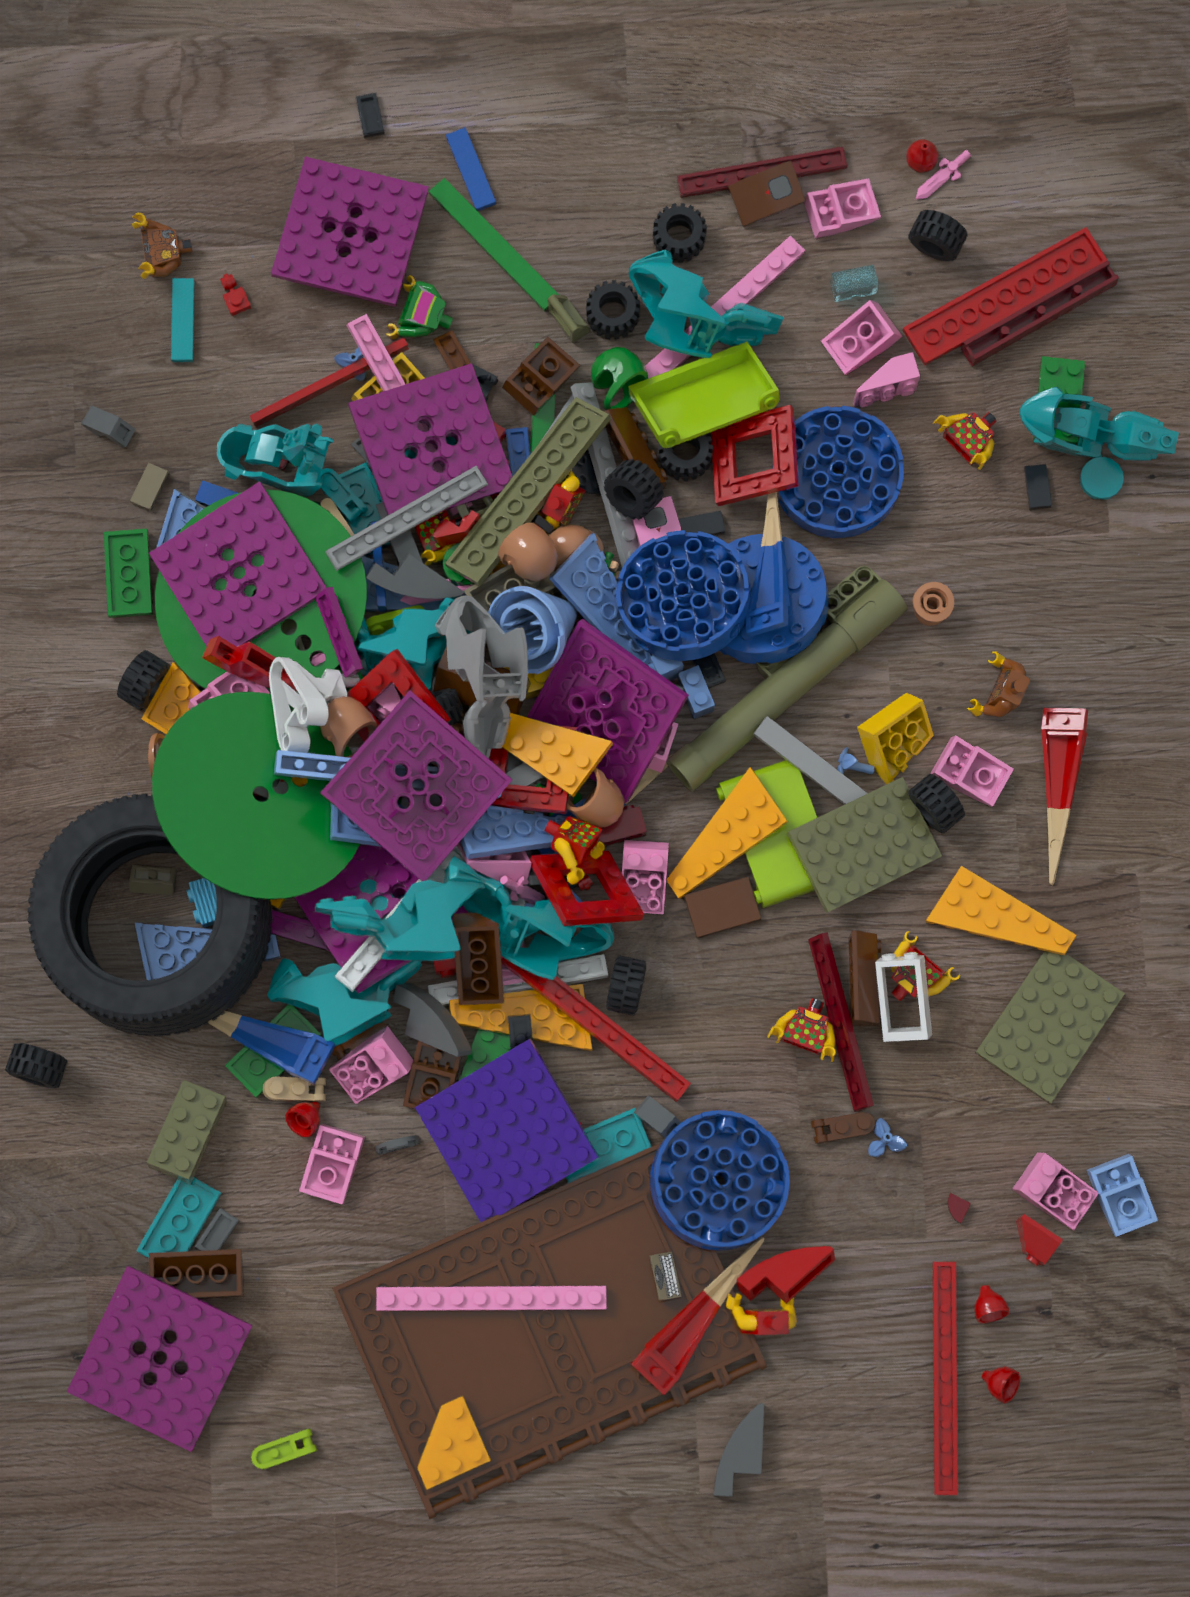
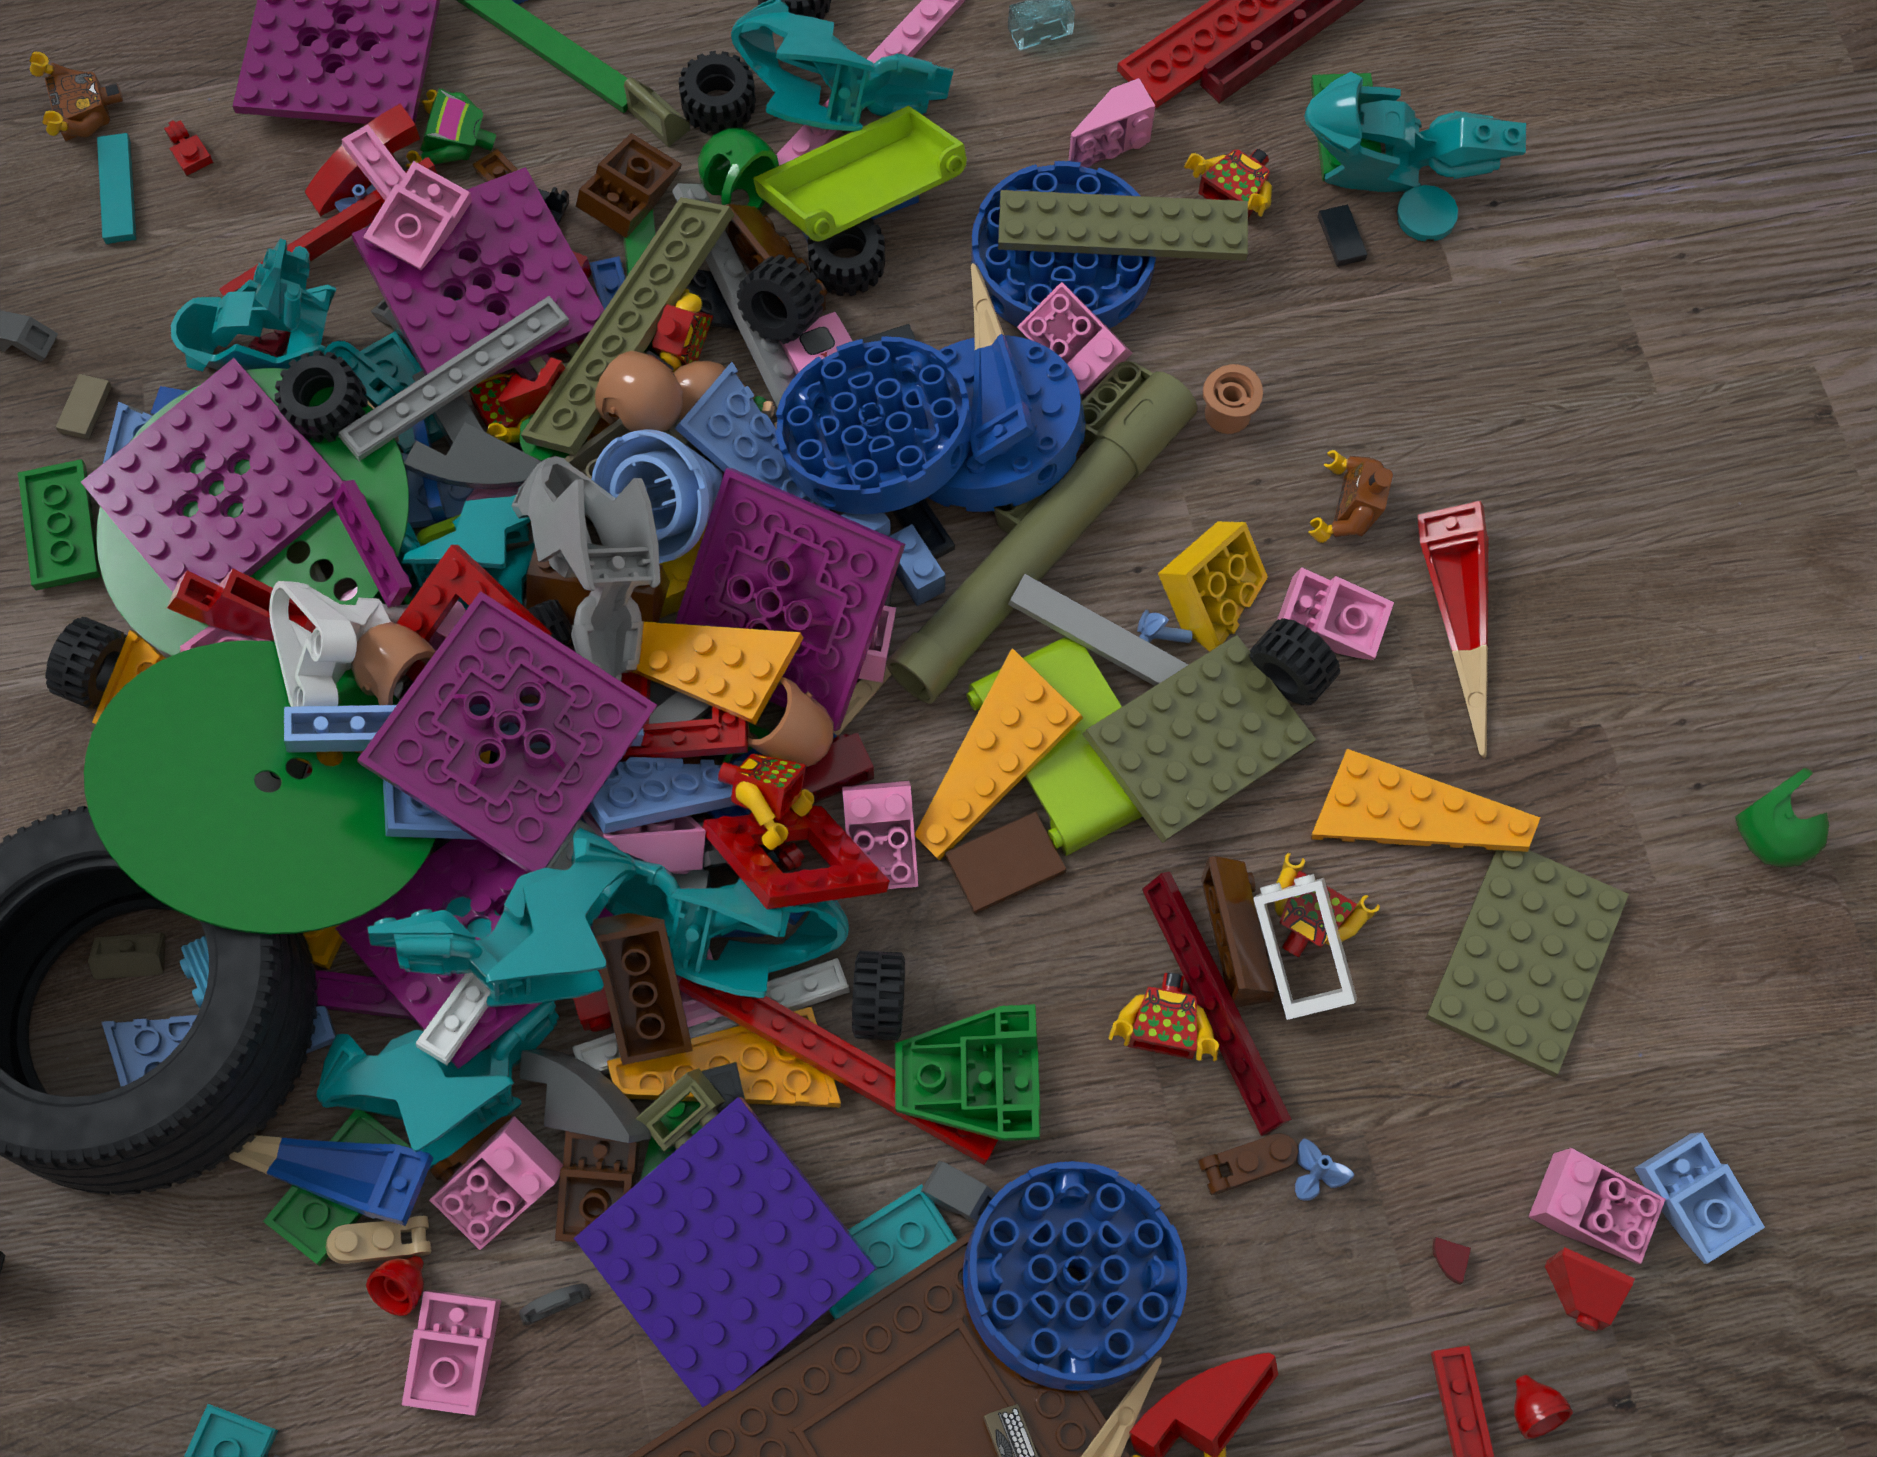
camera: 10 degrees left, 10 degrees down
(186, 1132) = (208, 1338): olive brick -> none
(301, 514) = (309, 377): none -> black tyre
(339, 339) = (341, 172): none -> red slope
(395, 399) = (418, 216): none -> bright pink slope
(507, 1031) = (702, 1090): none -> olive window
(525, 892) = (690, 872): bright pink sword -> none
(679, 1045) = (975, 1074): none -> green wedge
(785, 472) = (991, 247): red plate -> none
(832, 545) = (1076, 336): none -> bright pink slope
(861, 337) = (1063, 82): bright pink slope -> none
(882, 464) = (1123, 225): none -> olive plate

